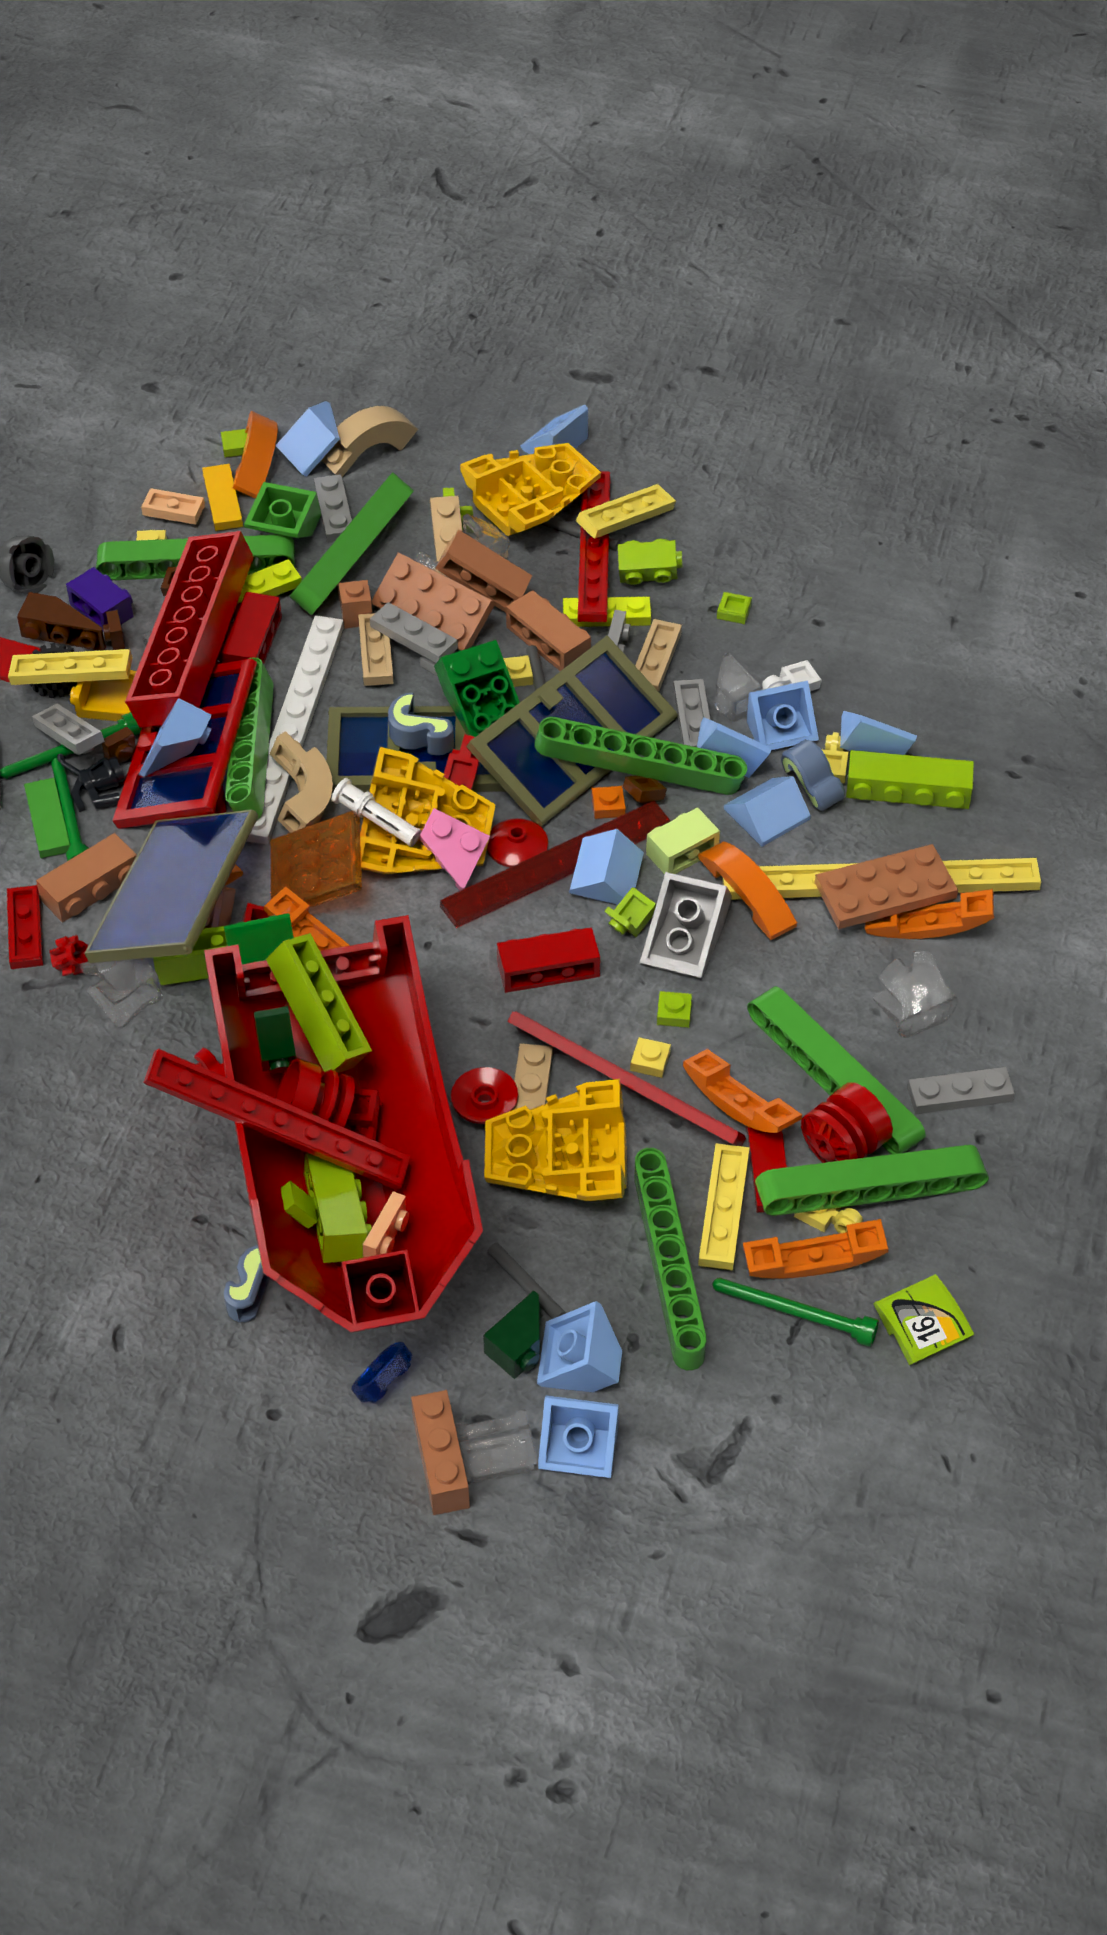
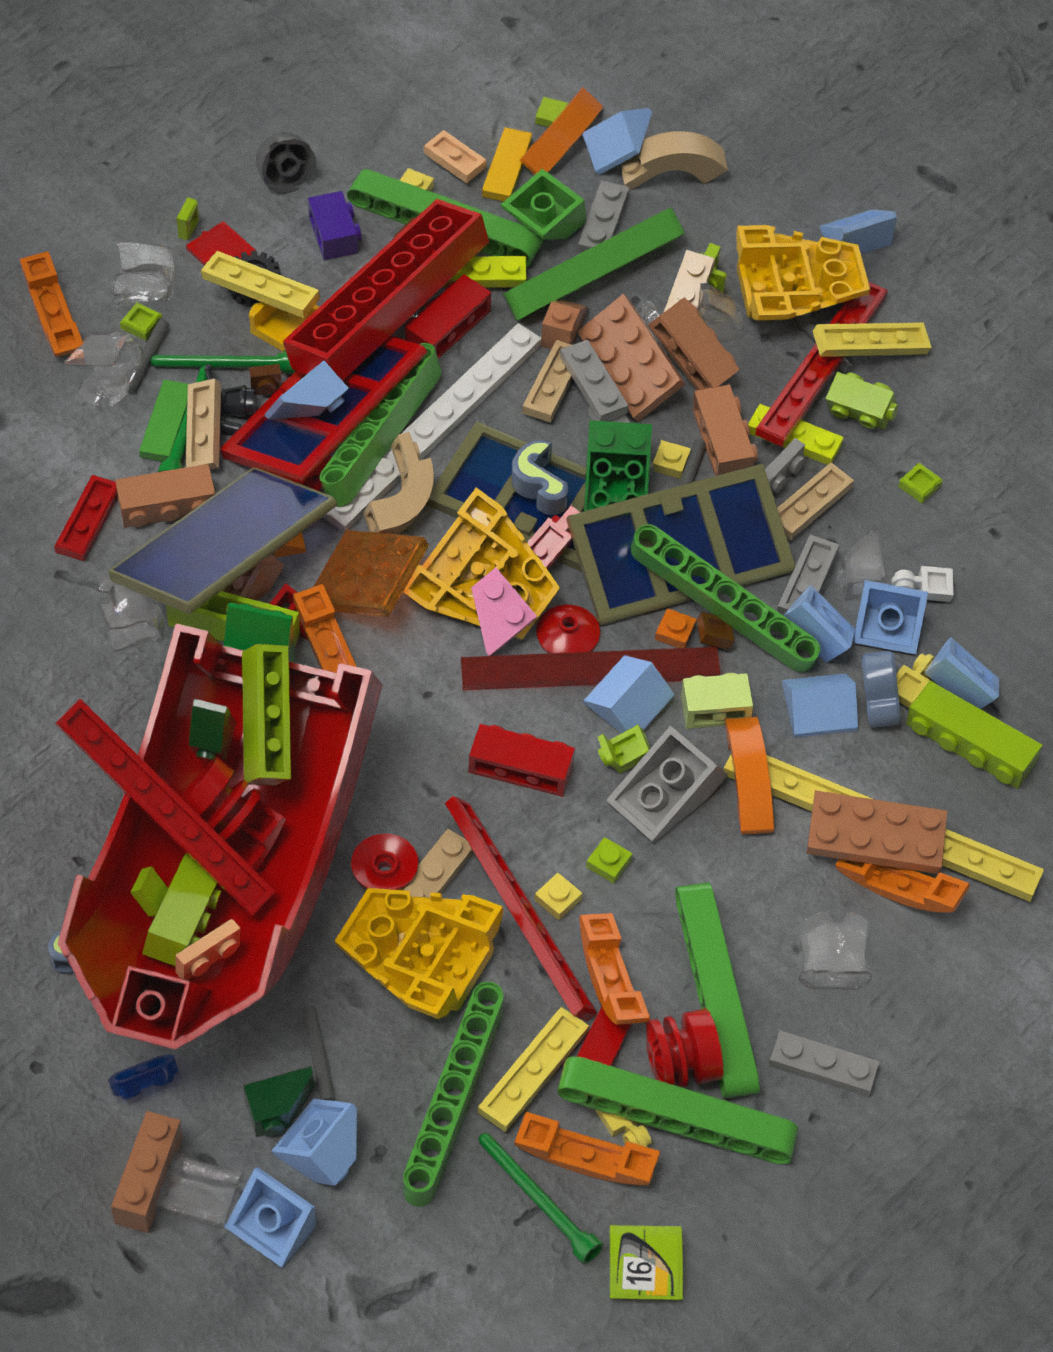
camera: 25 degrees right, 5 degrees up
(57, 622) = (279, 228): reddish brown slope -> none
(68, 729) = (228, 343): light grey plate -> none
(69, 955) = (103, 560): red gear -> none
(86, 803) = (203, 423): none -> tan plate
(113, 630) = (327, 262): reddish brown plate -> none
(365, 806) = (439, 536): white pin -> none

